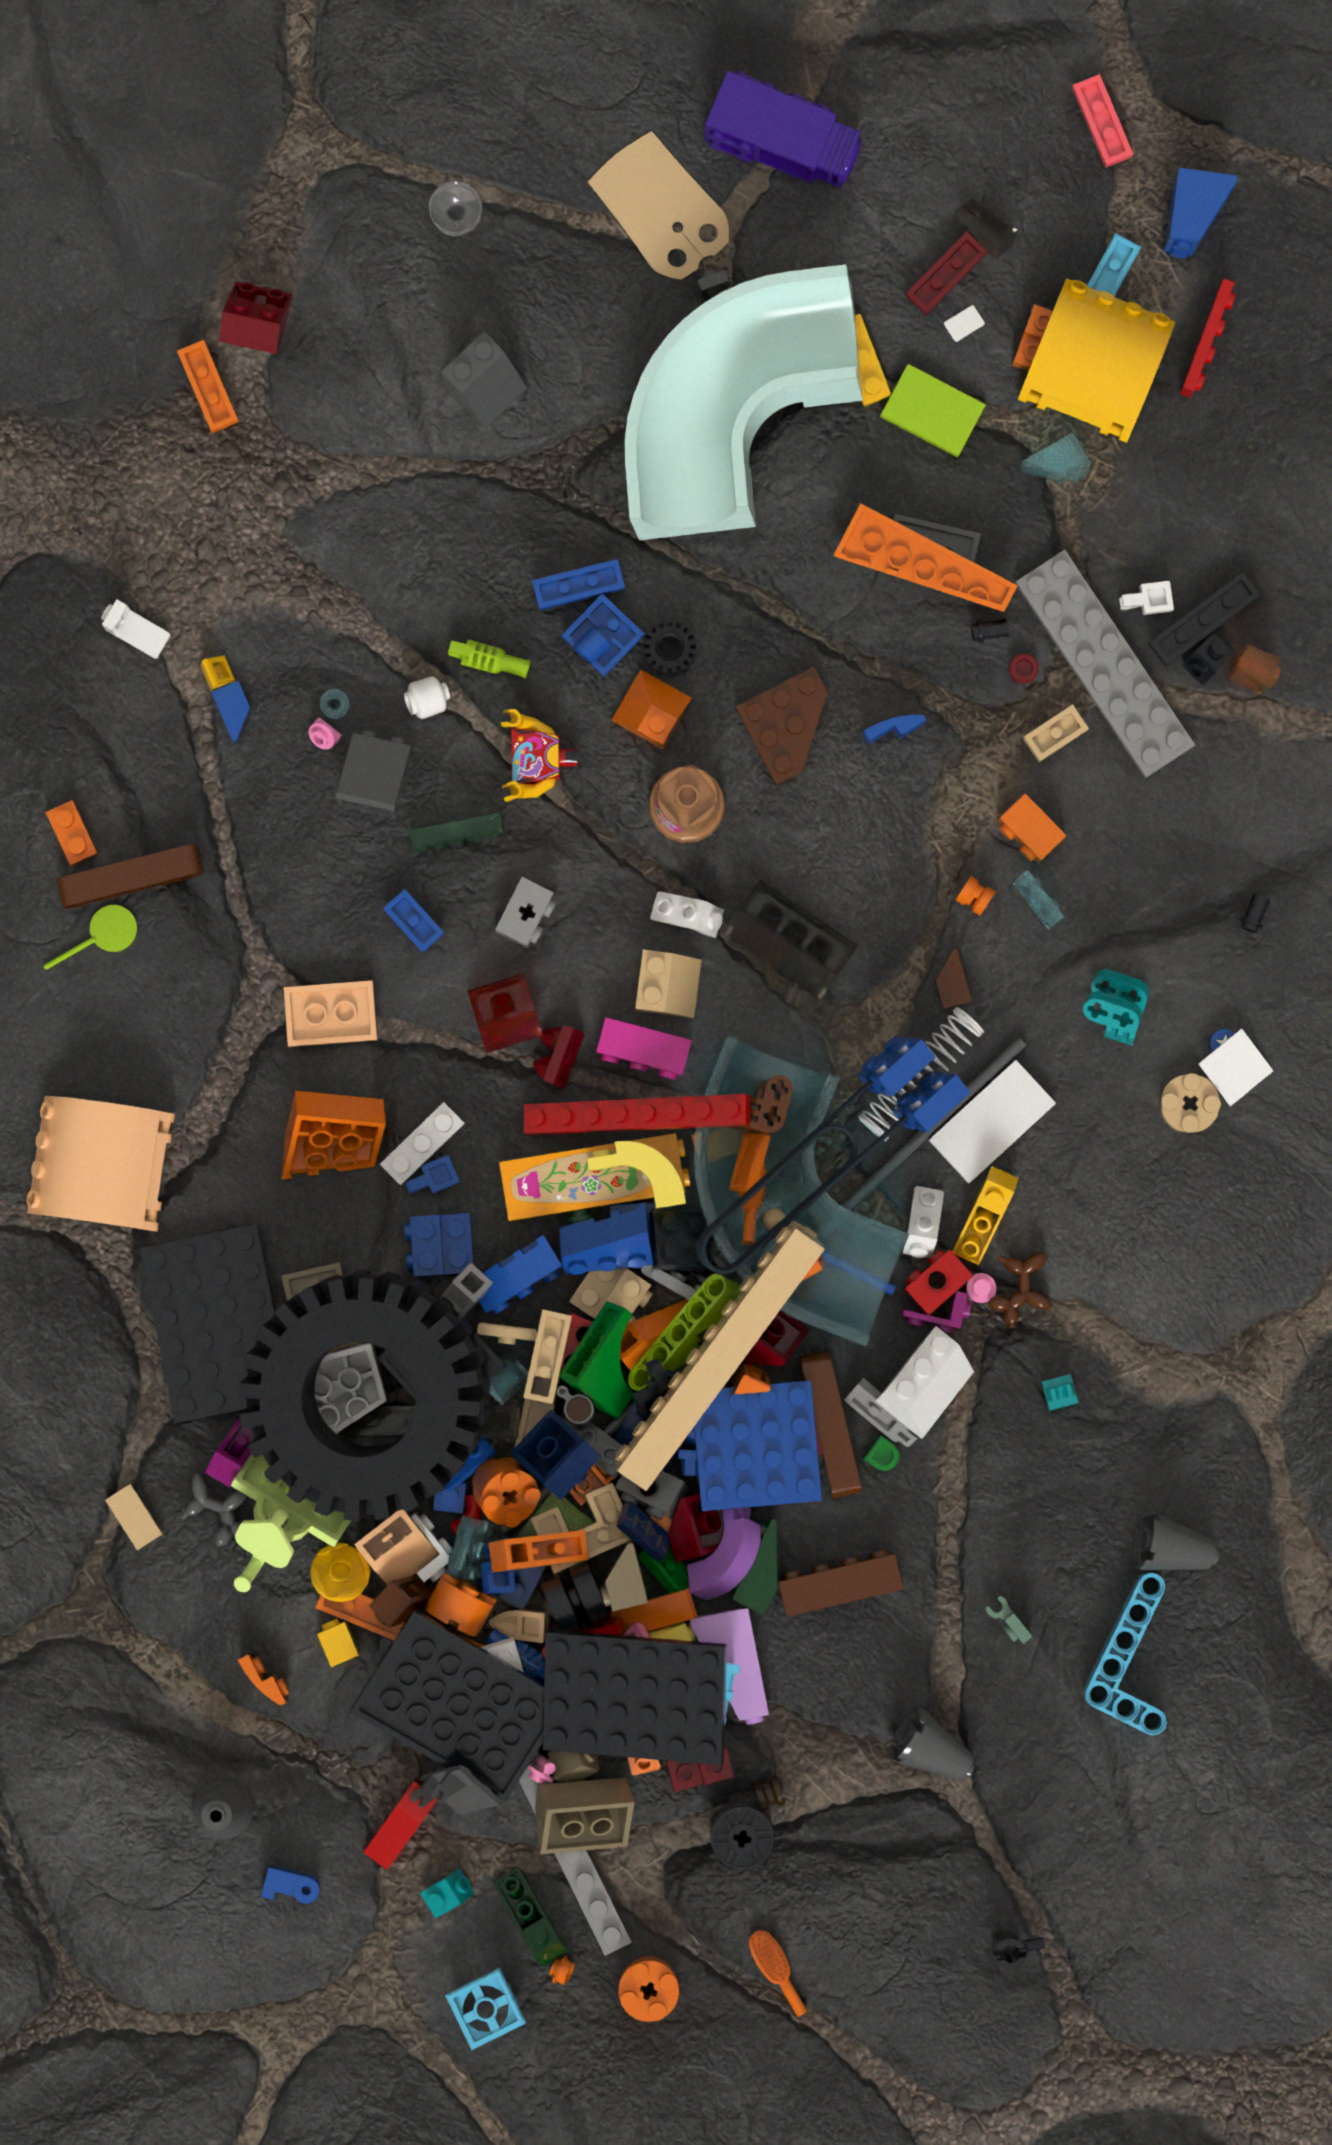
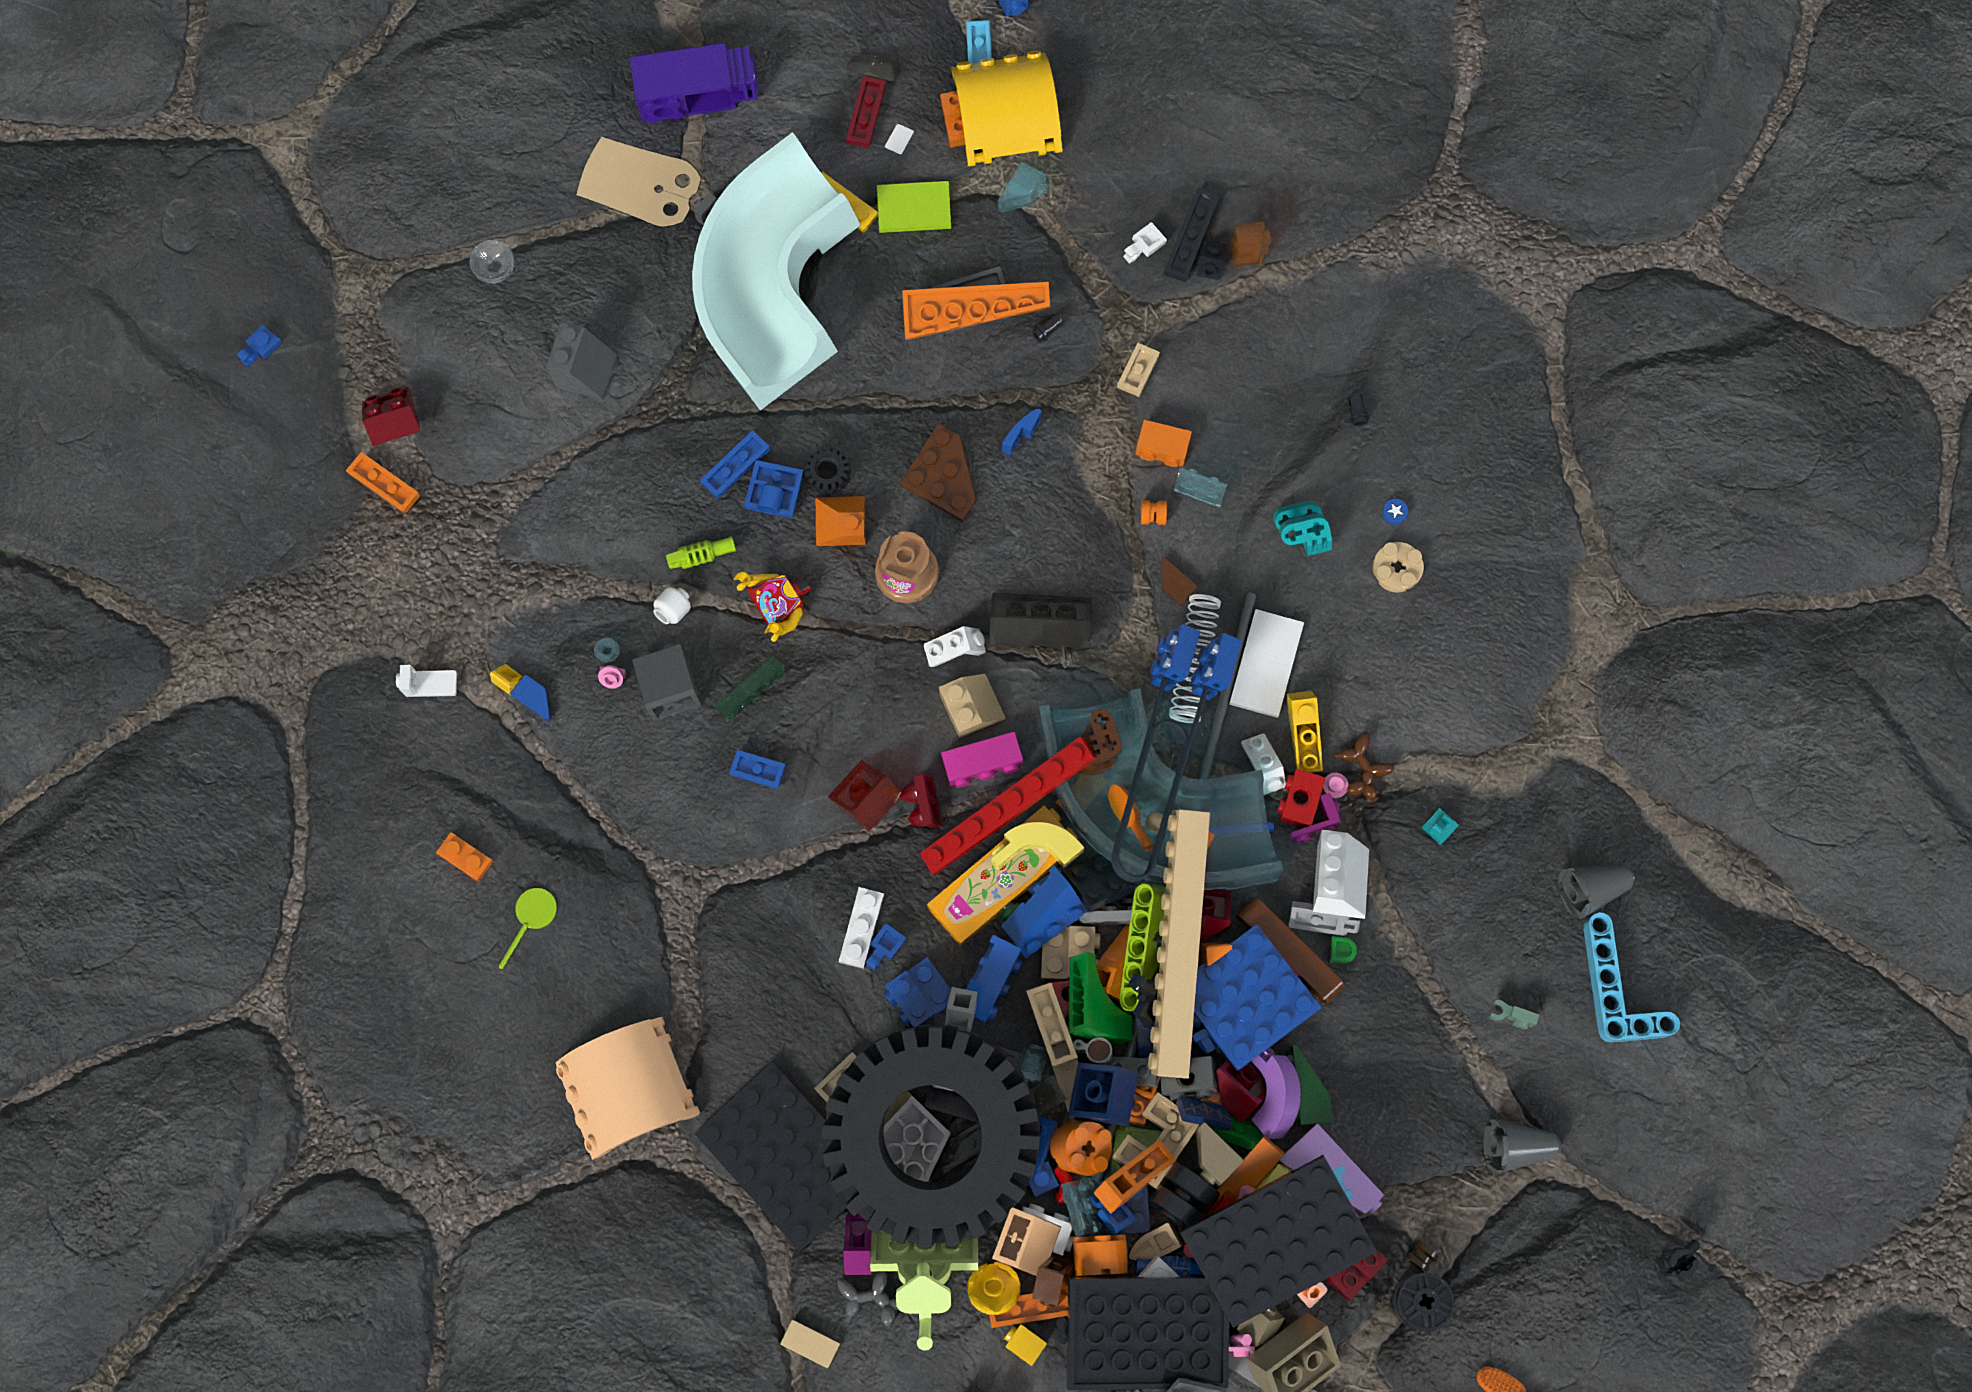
camera: 25 degrees left, 10 degrees down
(130, 876) = (526, 861): reddish brown beam -> none
(167, 154) = (261, 344): none -> blue plate
(330, 1013) = (735, 873): light nougat plate -> none
(332, 1133) = (789, 959): orange wedge -> none
(507, 1334) = (1010, 1029): tan plate -> none
(512, 923) = (830, 701): light grey brick -> none
(749, 1161) = (1111, 791): orange tile -> none
(840, 1584) = (1373, 1064): reddish brown brick -> none
(1023, 668) = (1087, 340): dark red tile -> none
(1105, 664) = (1142, 305): light grey plate -> none
(1213, 327) = (1076, 60): red plate -> none
(1235, 1067) = (1414, 522): white sticker -> none

